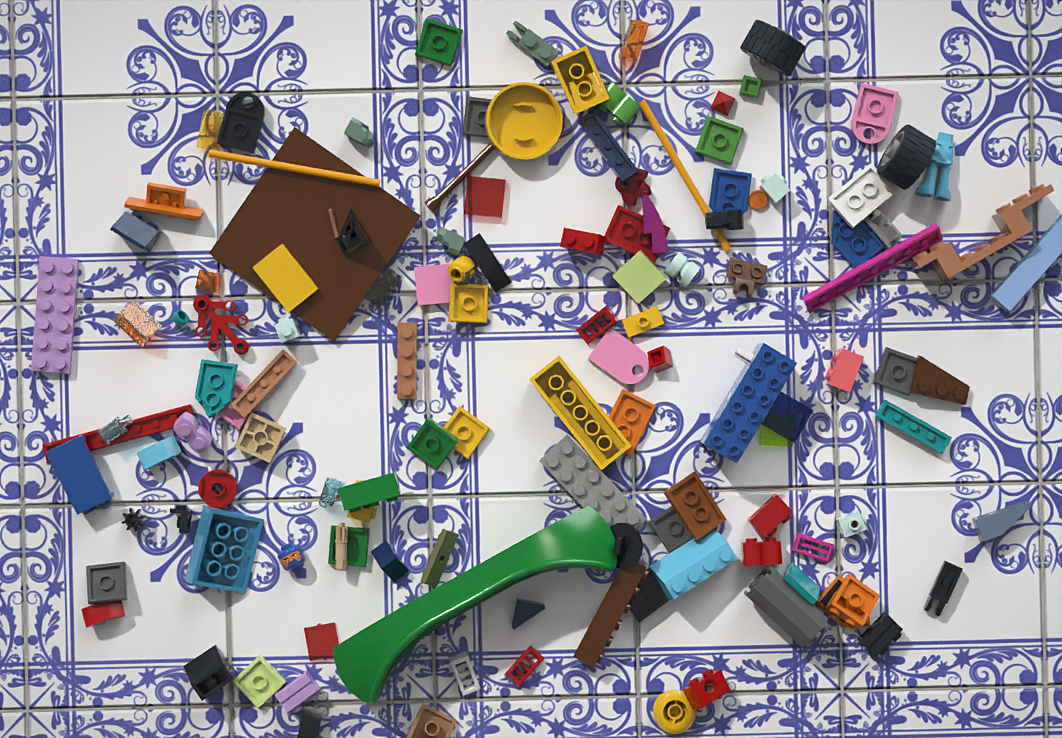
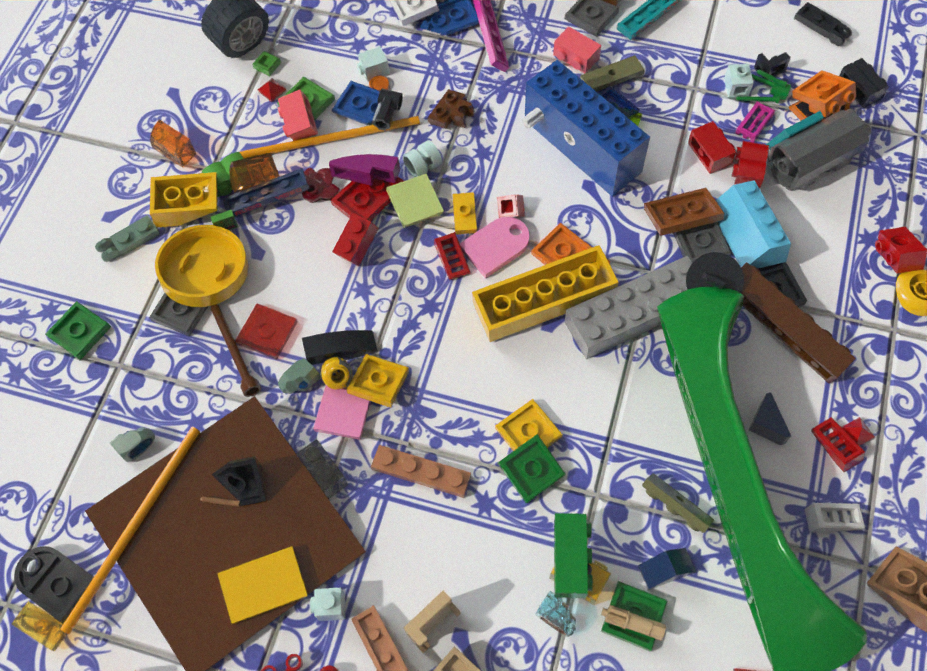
camera: 65 degrees left, 25 degrees down
(287, 399) = (428, 619): none -> tan piece
(538, 679) = (858, 431): none -> red slope
(571, 121) = (225, 220): none -> bright green tile
(619, 131) = (252, 171): none -> clear orange brick
(692, 143) = (297, 116): none -> coral brick
(834, 417) = (613, 73): none -> olive tile
(852, 561) = (779, 88): none -> green plant
(878, 553) = (774, 66): none -> black bracket

